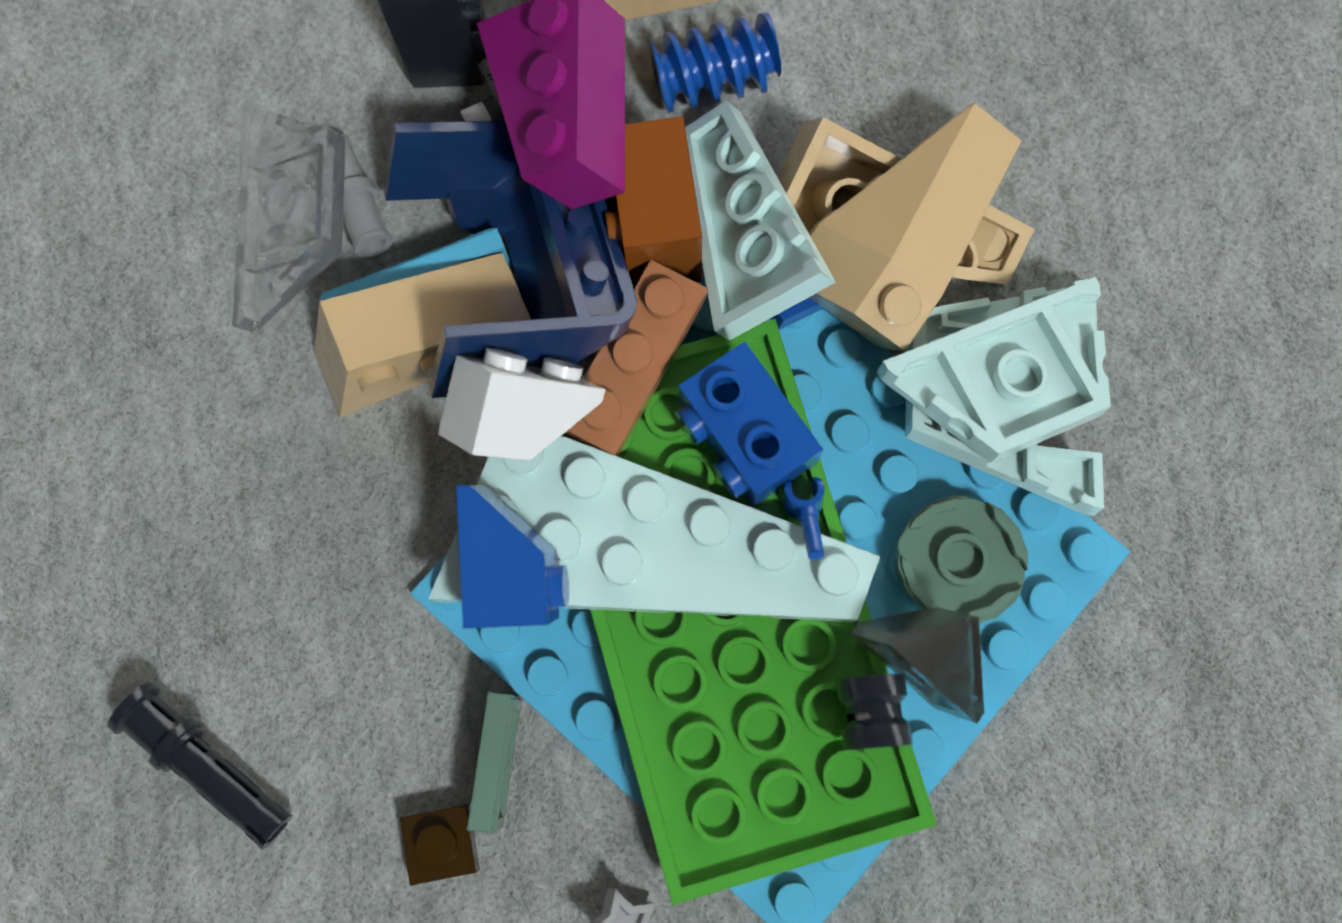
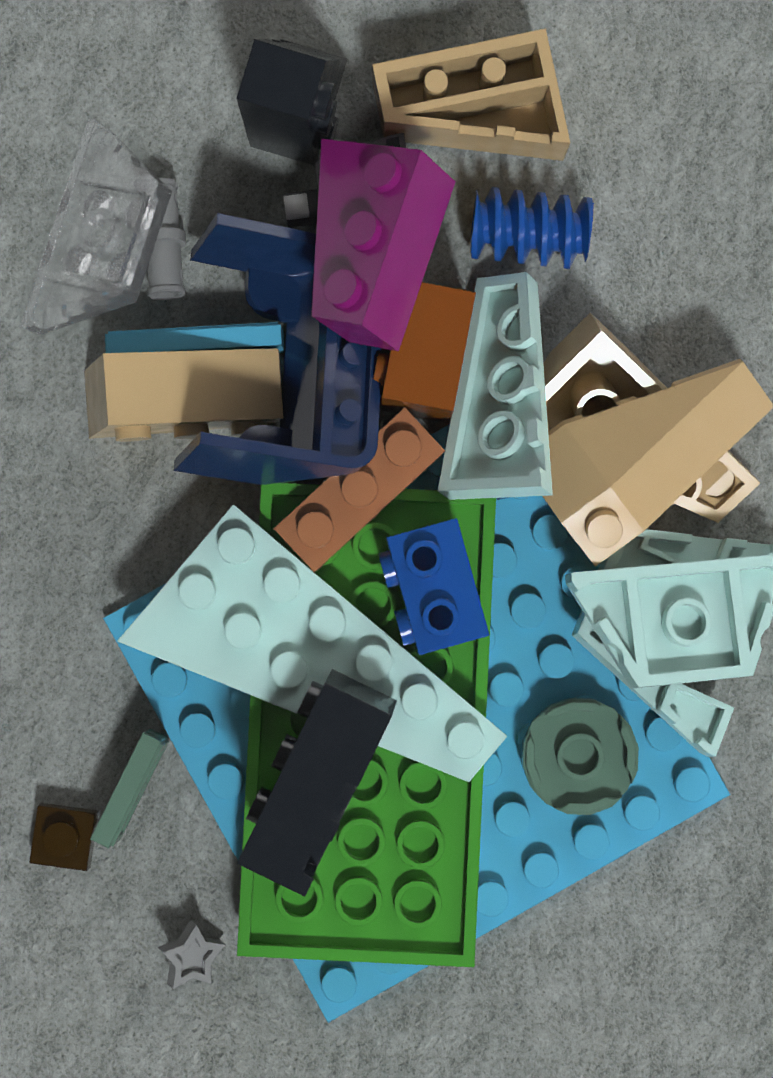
camera: 10 degrees right, 10 degrees up
(505, 565) = (190, 643): blue slope -> none
(513, 408) = (241, 511): white slope -> none
(691, 667) = (315, 780): none -> black wedge
(807, 513) = (458, 684): blue hand -> none
(873, 711) = (453, 863): black wheel -> none
(935, 652) = (523, 827): clear smoke slope -> none

